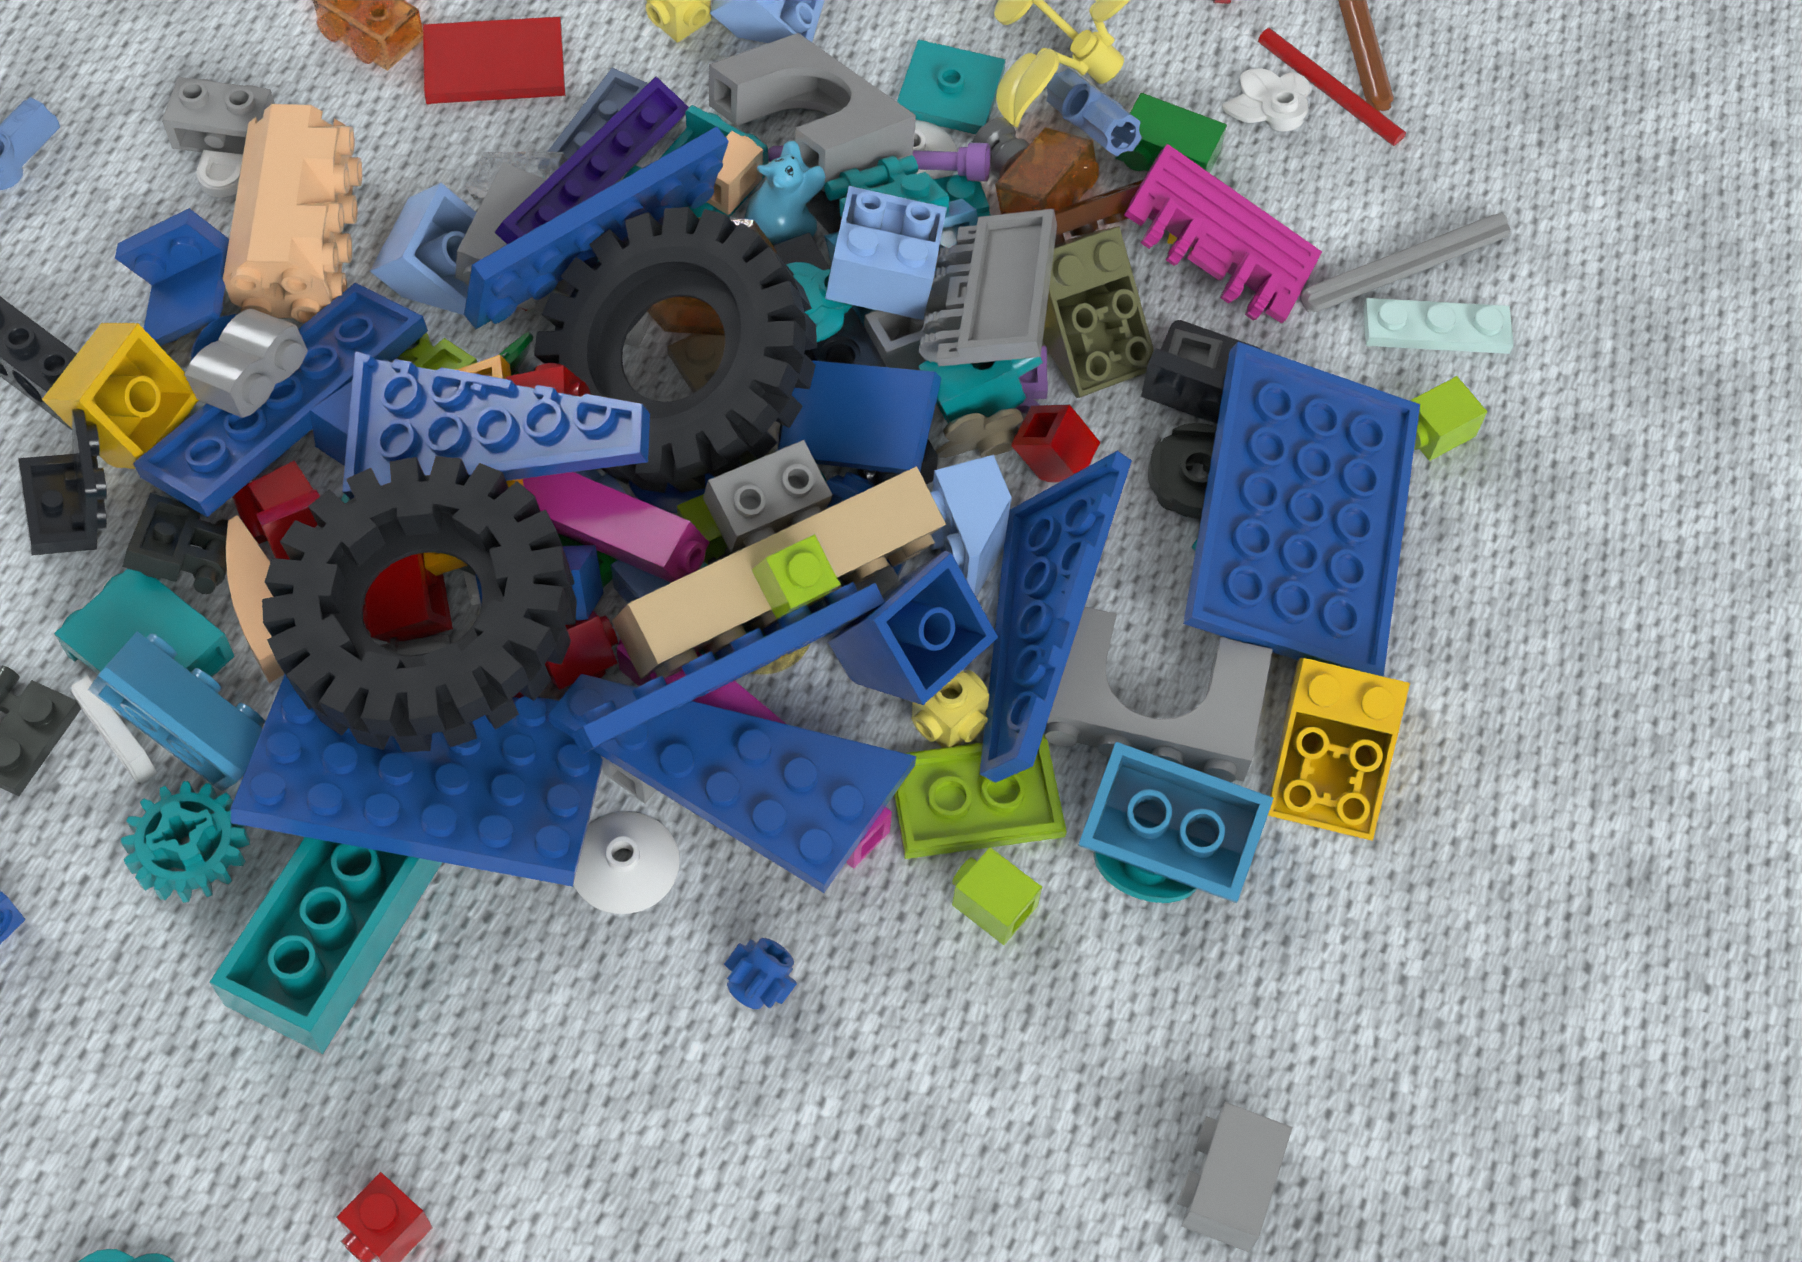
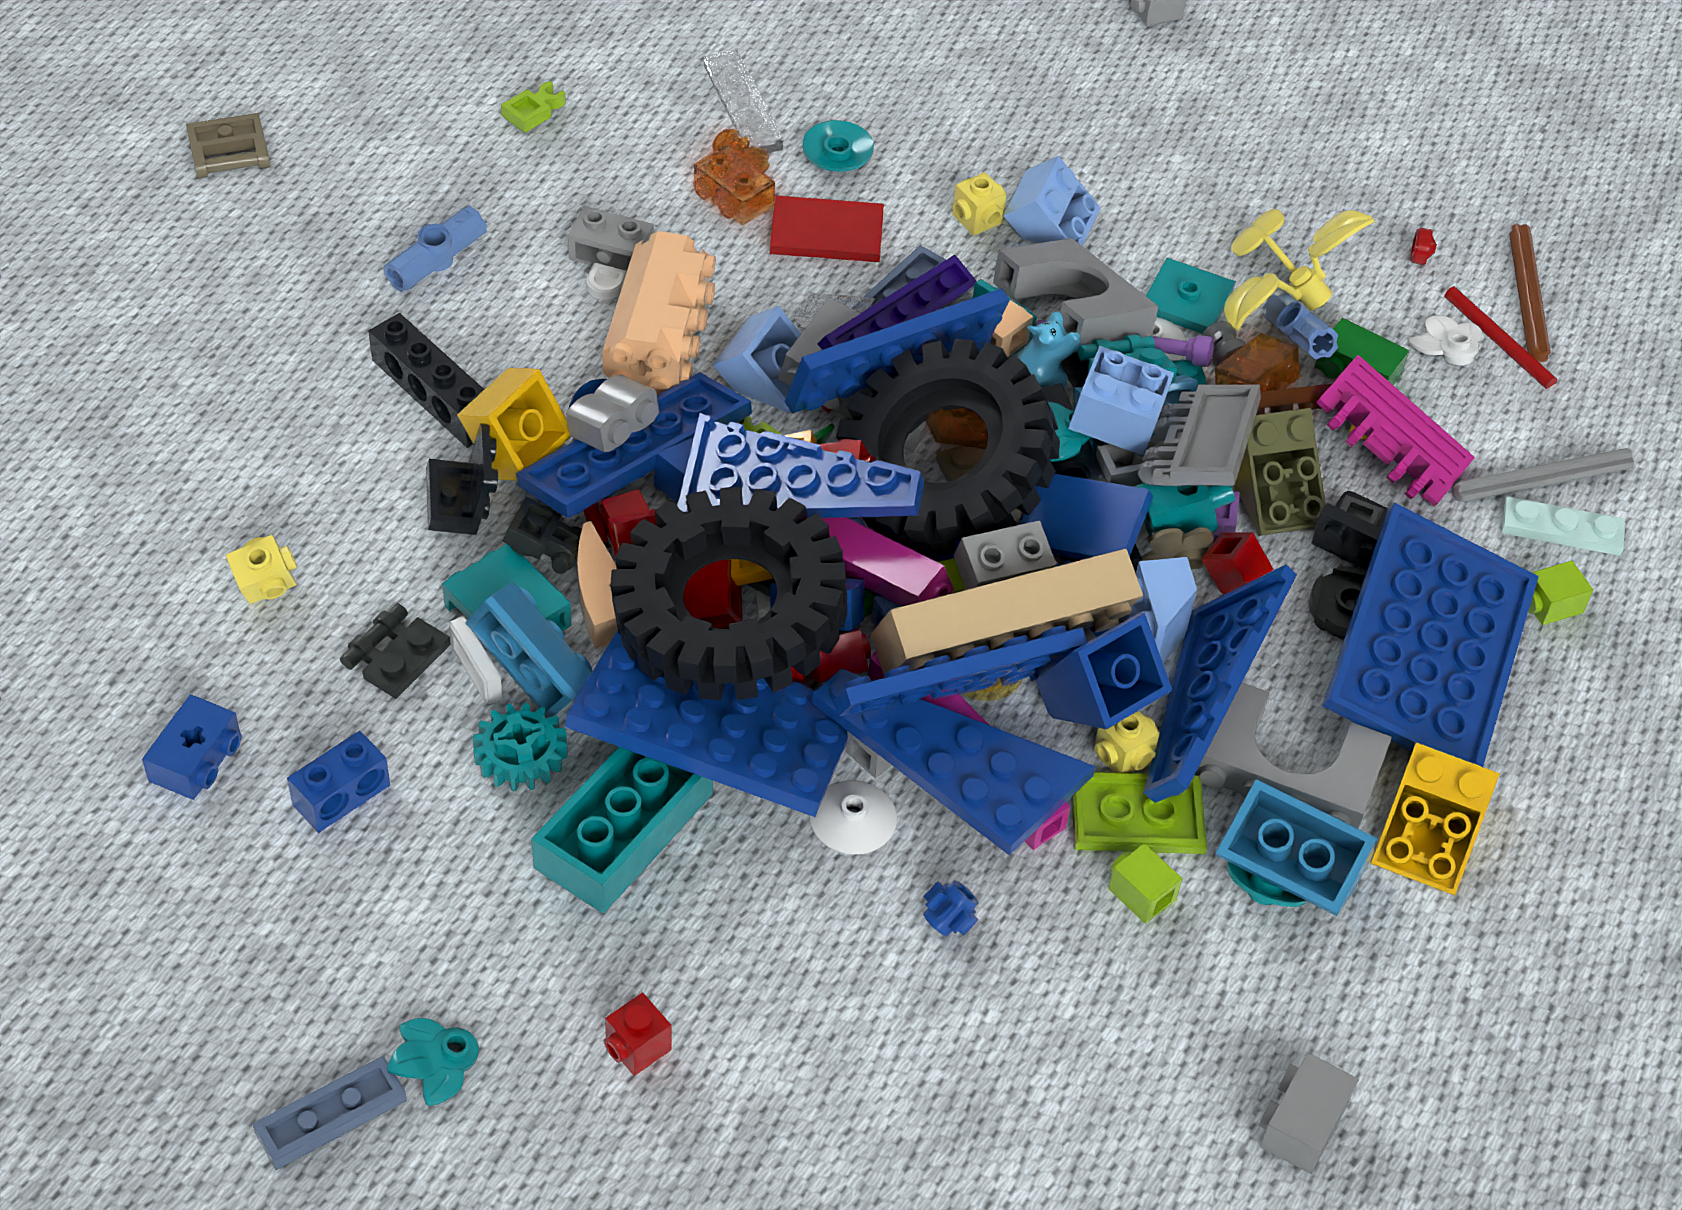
camera: 10 degrees right, 10 degrees down
(186, 270) = (569, 341): blue bracket -> none
(795, 576) = (1022, 609): lime brick -> none

